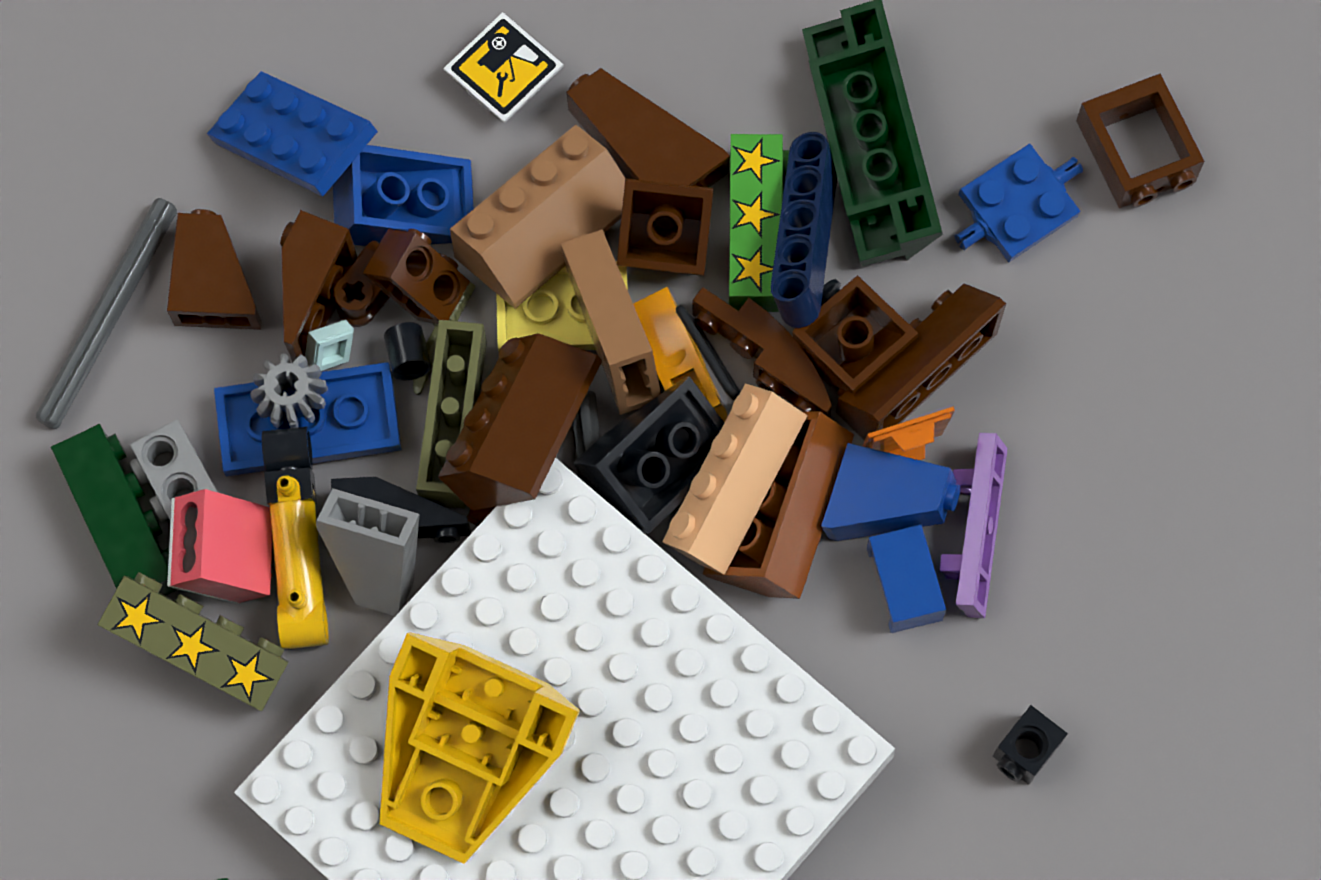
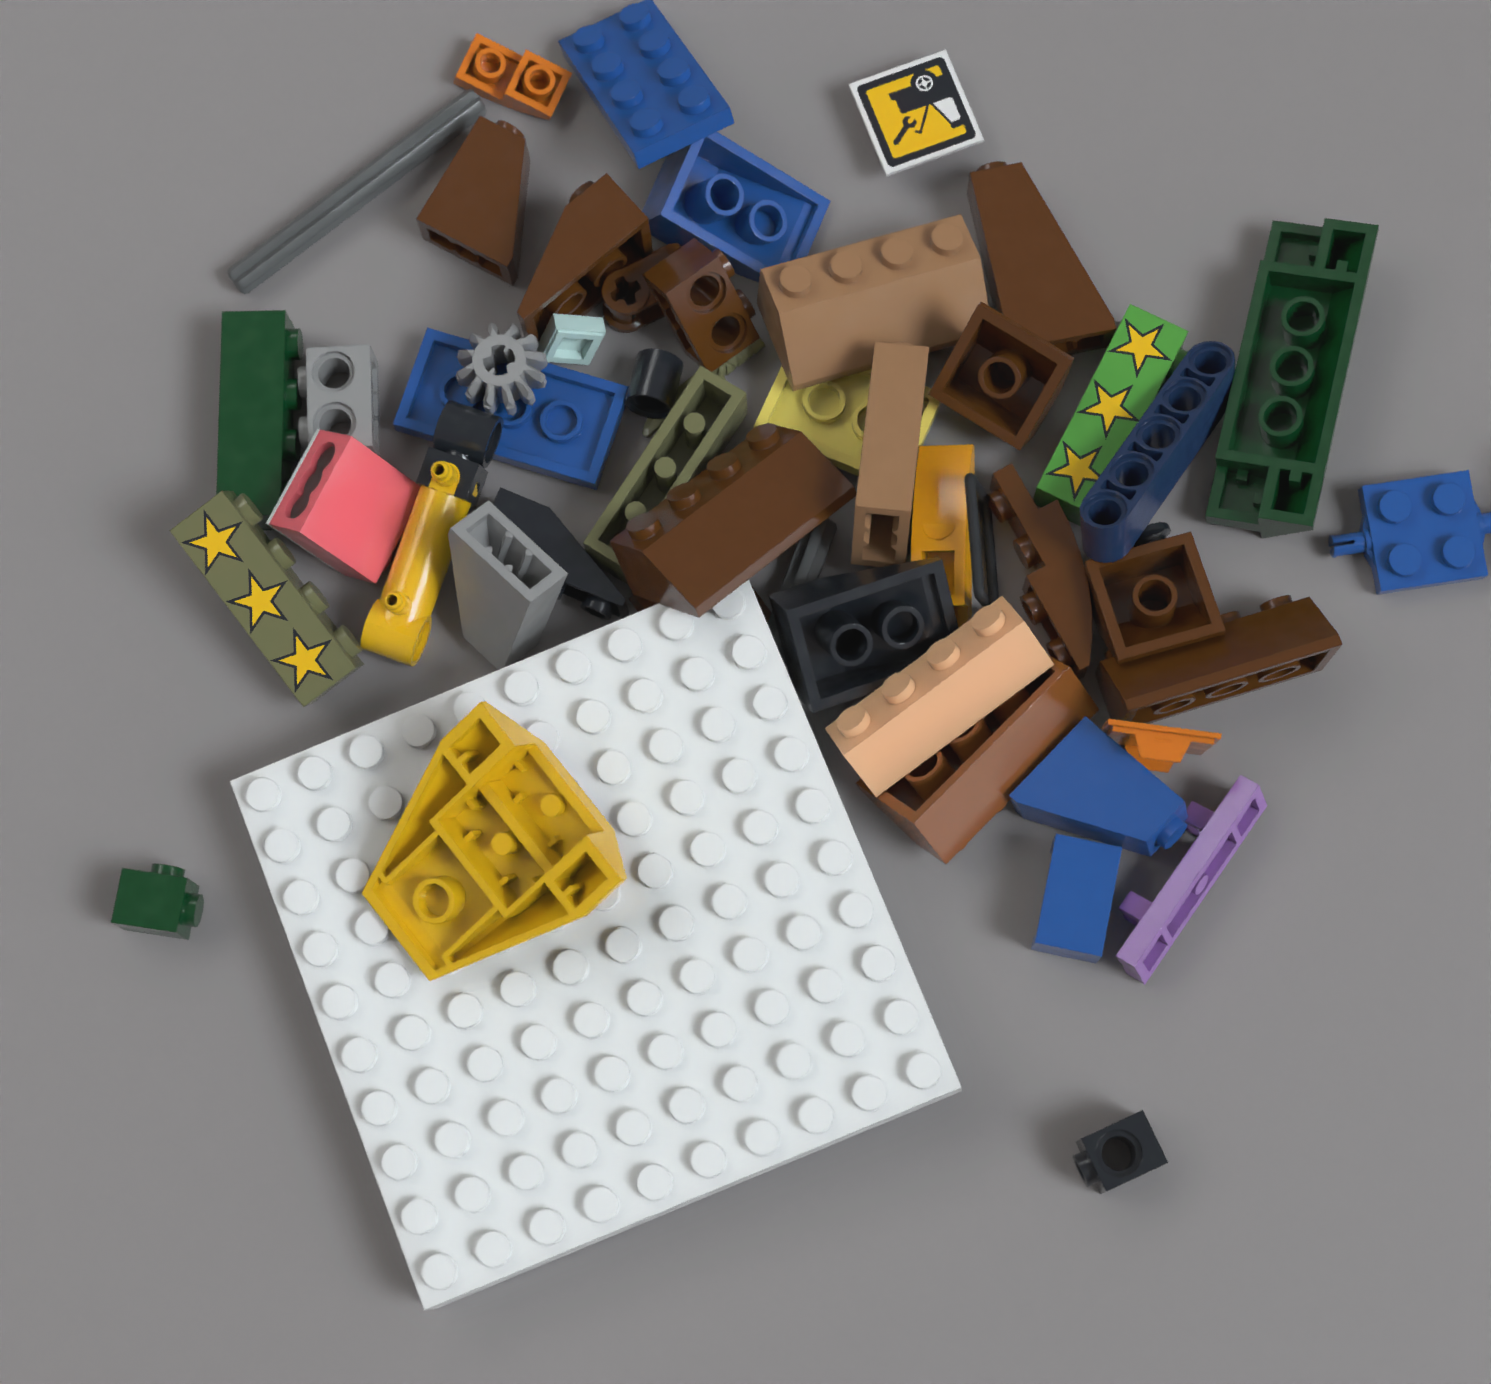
camera: 30 degrees right, 5 degrees up
(186, 177) = (512, 80): none -> orange slope

